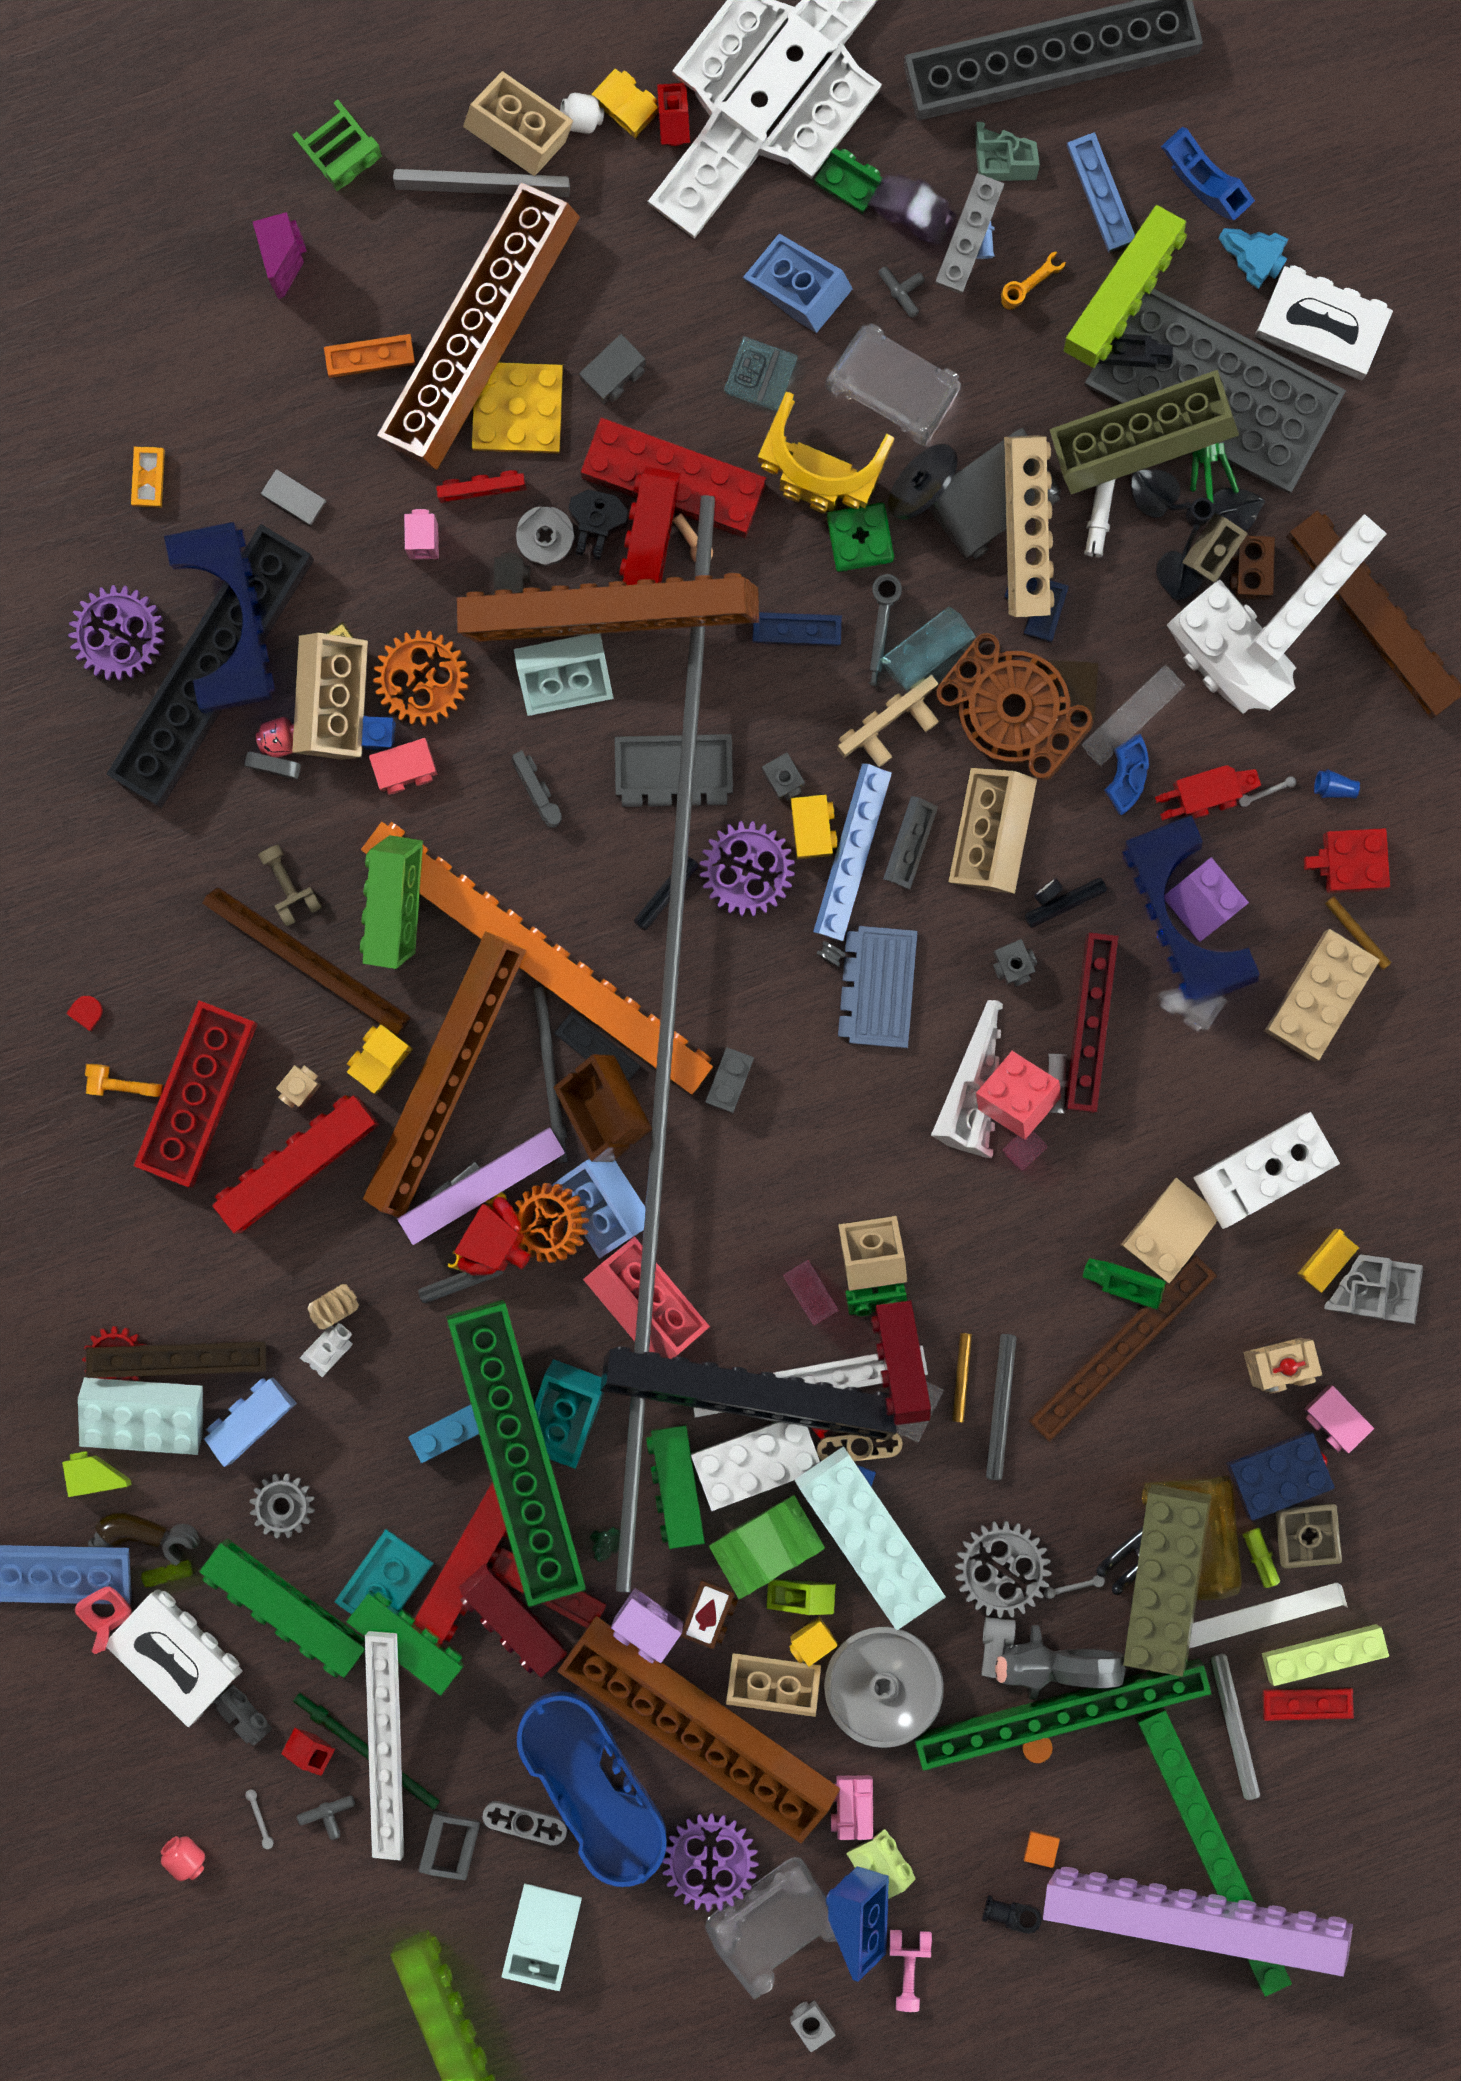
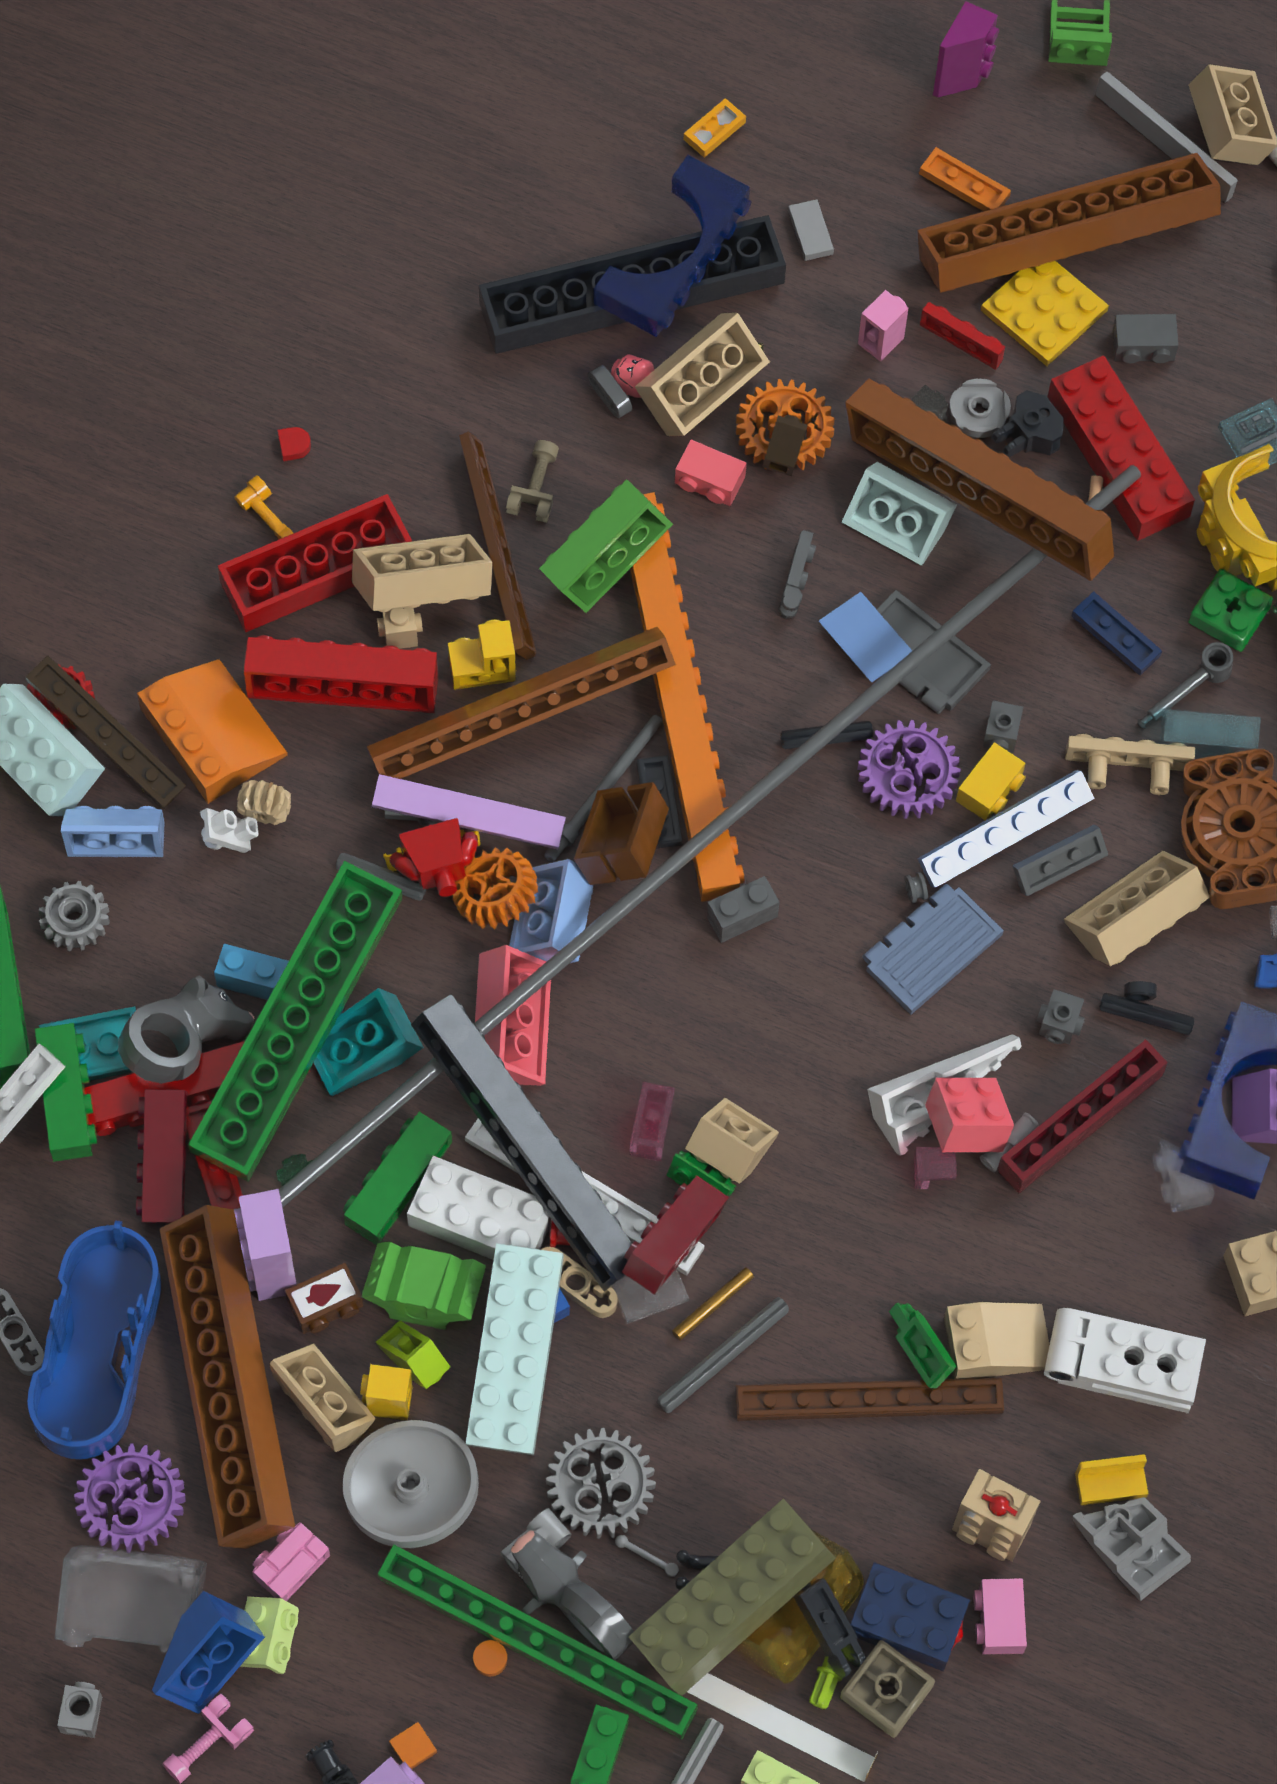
camera: 40 degrees right, 20 degrees down
(128, 610) = (609, 201): medium lavender gear -> none
(240, 1281) = (210, 728): none -> orange slope
(281, 1039) = (421, 572): none -> tan brick
(378, 733) = (714, 431): blue brick -> none
(436, 1513) = (188, 1019): none -> dark grey animal
(444, 704) = (785, 444): none -> dark brown slope
(627, 793) = (865, 636): none -> medium blue sticker
(651, 525) = (1079, 448): red brick -> none
(1240, 1534) = (830, 1626): none -> black hinge

